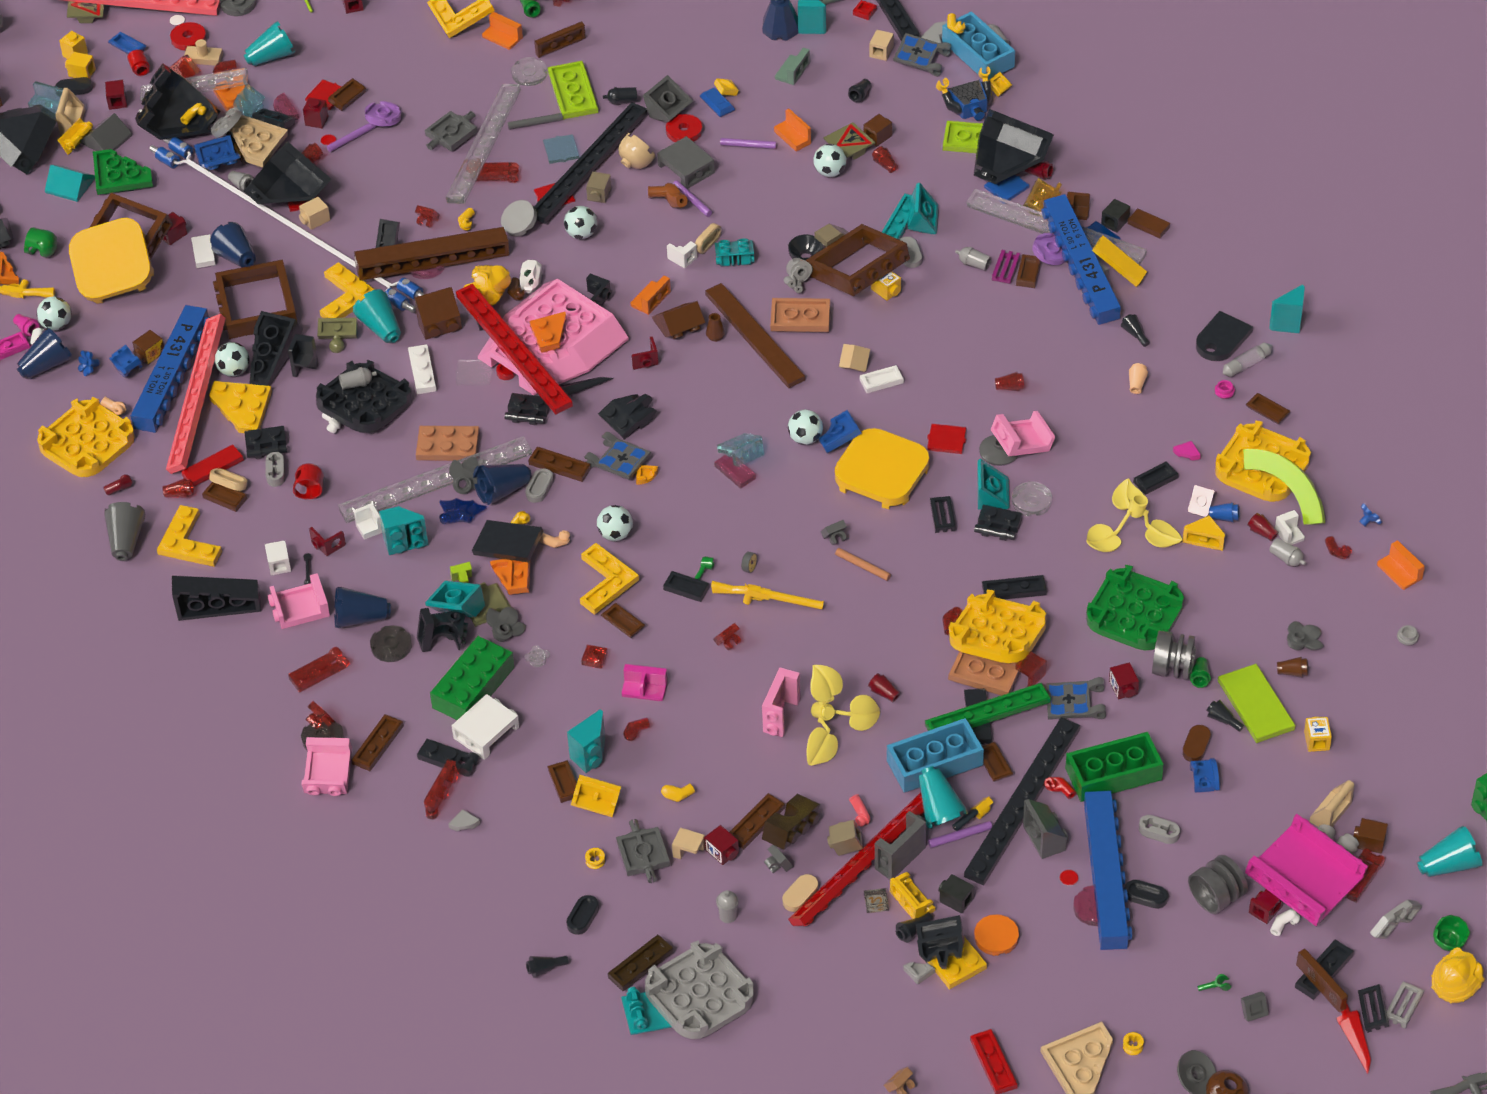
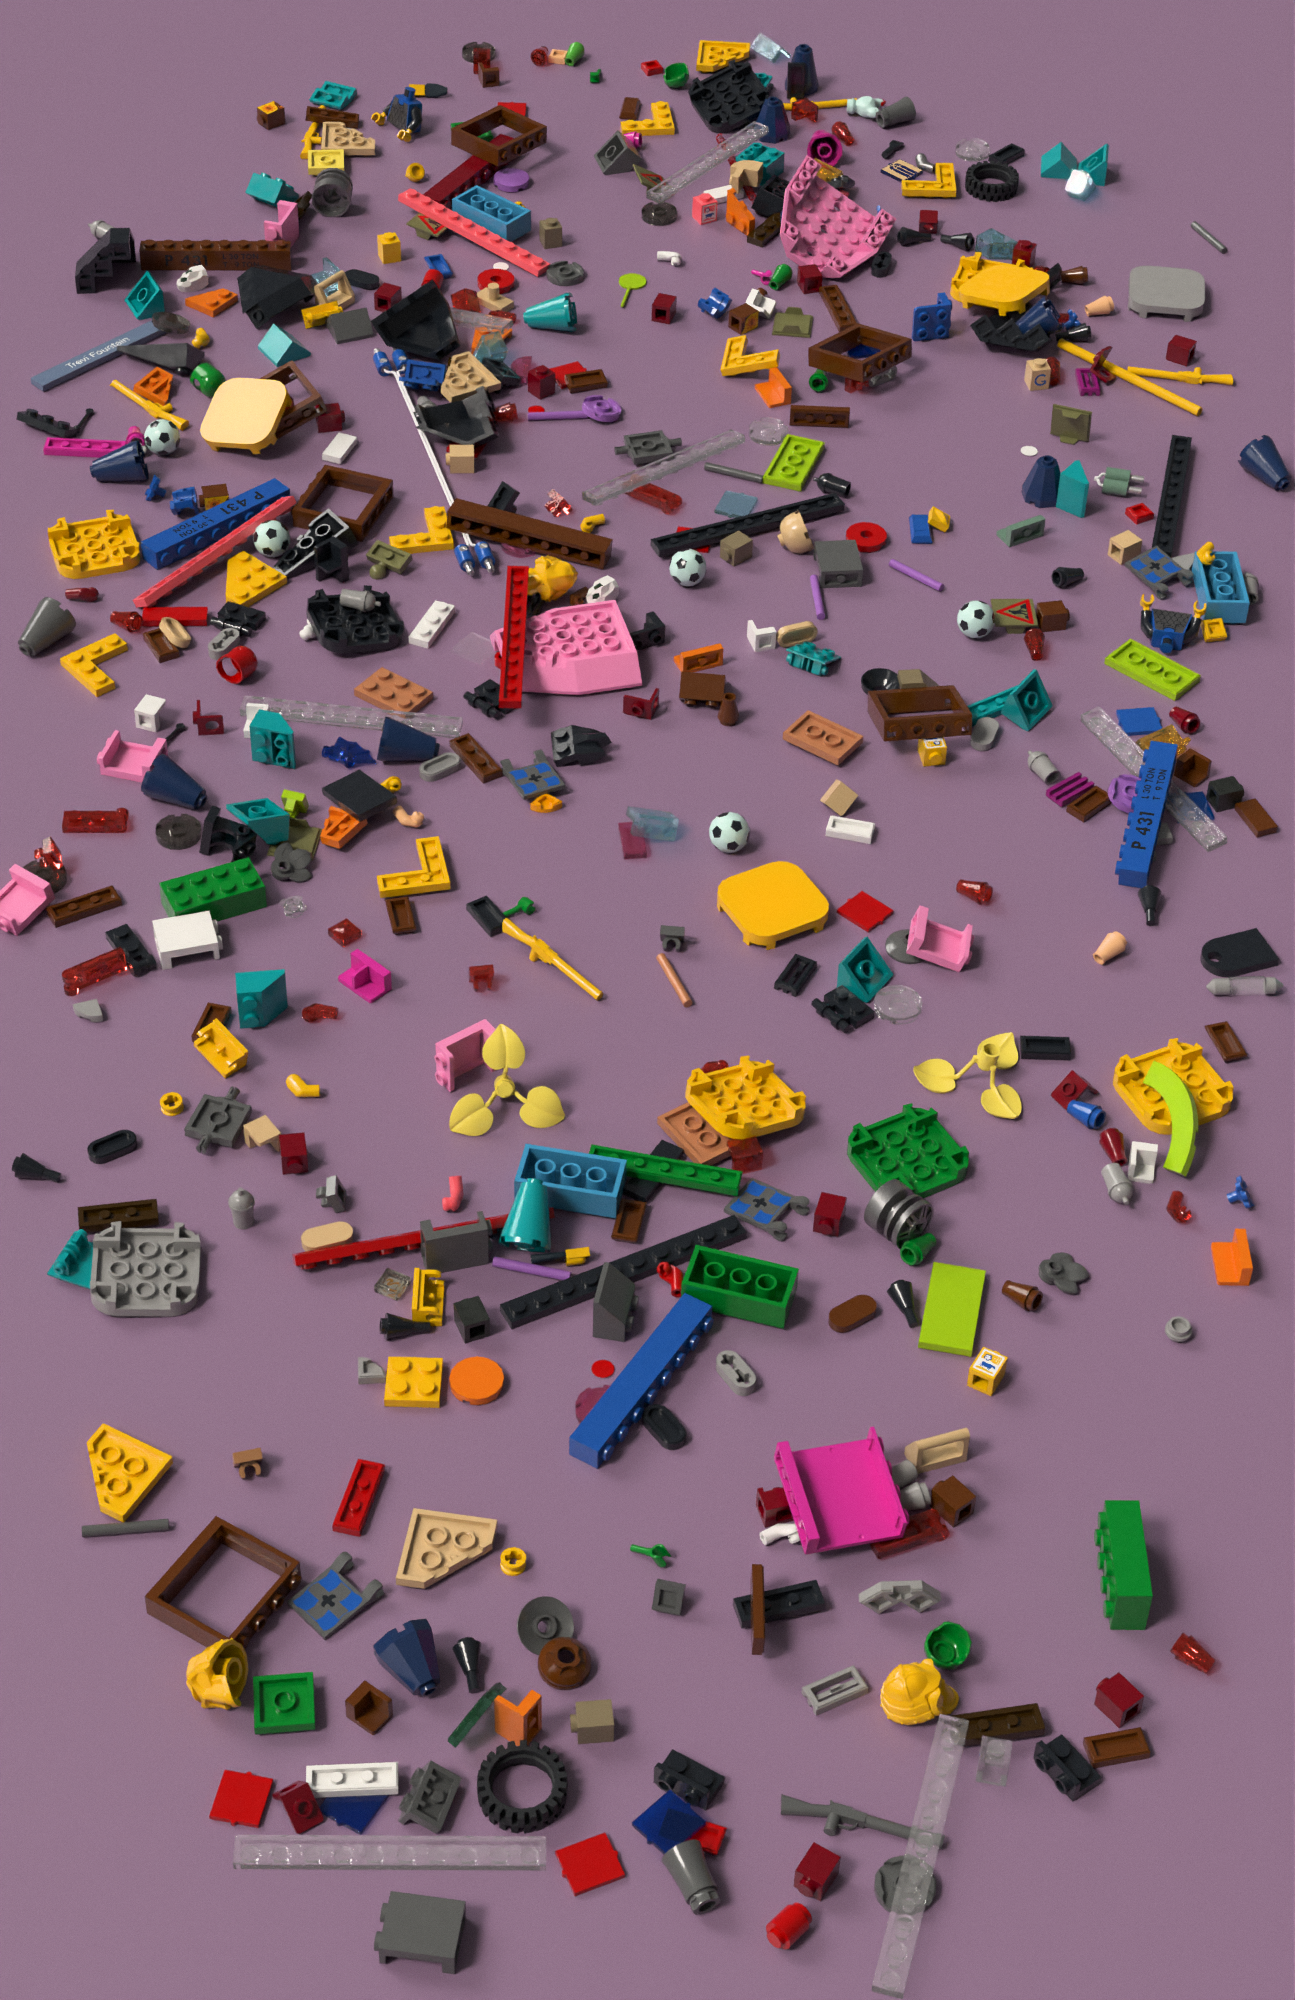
camera: 30 degrees right, 5 degrees down
(80, 65) = (381, 264): yellow brick -> none
(115, 406) = (141, 532): light nougat arm -> none
(119, 173) = (329, 358): green plate -> none
(190, 113) = (440, 334): yellow arm -> none
(214, 596) = (62, 716): black wedge -> none
(224, 124) = (450, 352): light grey tile -> none
(233, 244) = (362, 447): dark blue cone -> none
(378, 315) = (431, 559): teal cone -> none
(437, 313) = (484, 581): reddish brown slope -> none
(463, 472) = (375, 719): dark grey plate -> none
(518, 218) = (637, 540): light grey tile -> none
(548, 331) = (561, 637): orange wing -> none
(574, 387) = (545, 700): black bar -> none
(614, 523) = (469, 827): light aqua piece -> none
(666, 100) = (867, 502): dark grey slope -> none
(670, 192) = (797, 579): dark orange arm -> none
(749, 562) = (564, 923): dark grey tile -> none
(755, 335) = (763, 737): reddish brown tile -> none
(755, 820) = (350, 1151): reddish brown tile -> none
(786, 828) = (354, 1167): dark brown arch -> none
(794, 131) = (967, 583): orange panel -> none
(798, 271) = (854, 700): light grey piece -> none
(841, 431) = (763, 853): blue tile -> none
(845, 837) = (412, 1208): dark tan brick -> none
(882, 686) = (584, 1094): dark red cone -> none
(940, 939) = (407, 1350): black plate -> none
(1008, 147) = (1162, 682): black panel -> none
(1016, 587) = (805, 1076): black tile -> none
(1119, 261) = (1186, 833): yellow tile -> none
(1187, 450) = (1101, 1039): dark pink tile -> none
(1204, 534) = (1043, 1121): yellow slope -> none
(1205, 775) = (830, 1347): blue piece -> none
(1217, 884) = (737, 1454): flat silver wheel -> none
(1224, 389) = (1194, 1001): dark pink plate -> none
(1353, 1029) = (756, 1681): red bar -> none
(1384, 1018) = (799, 1673): black tile -> none
(1451, 854) = (1020, 1566): teal cone -> none

